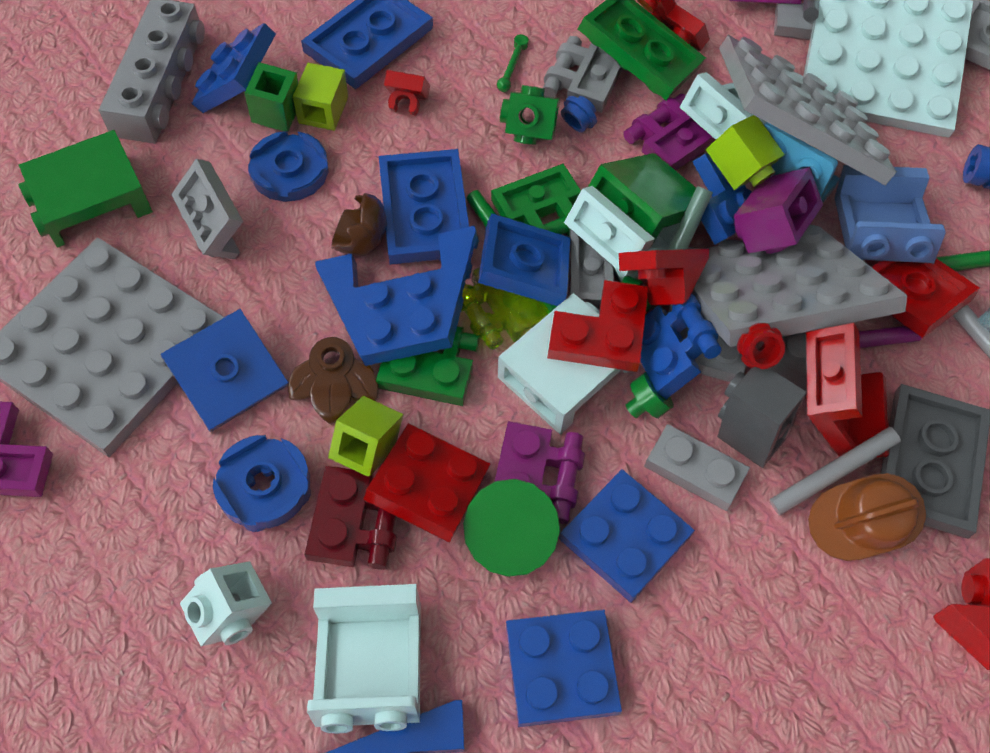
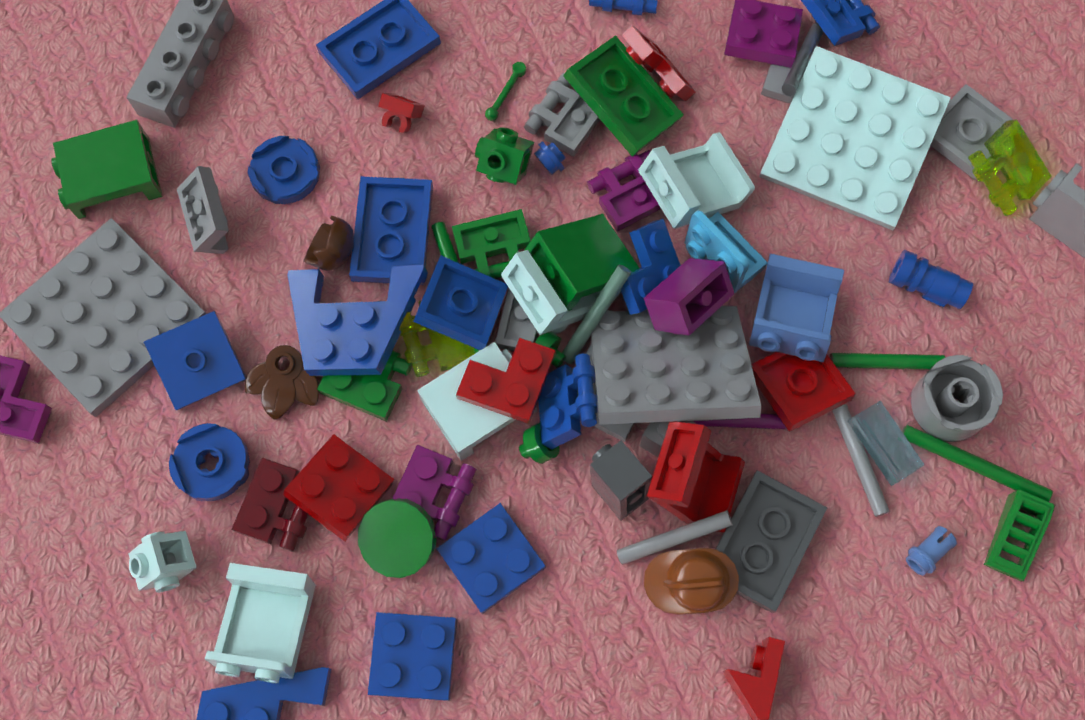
camera: 15 degrees right, 10 degrees up
(232, 67) = (249, 68): blue plate -> none
(271, 96) = (278, 104): green brick -> none
(320, 96) = (323, 105): lime brick -> none
(365, 435) = (295, 439): lime brick -> none
(668, 272) = (572, 339): red slope -> none
(697, 467) = (564, 510): light grey plate -> none
(745, 153) = (672, 237): lime brick -> none
(769, 353) = (626, 438): red plate -> none
(805, 108) = (739, 199): light grey plate -> none

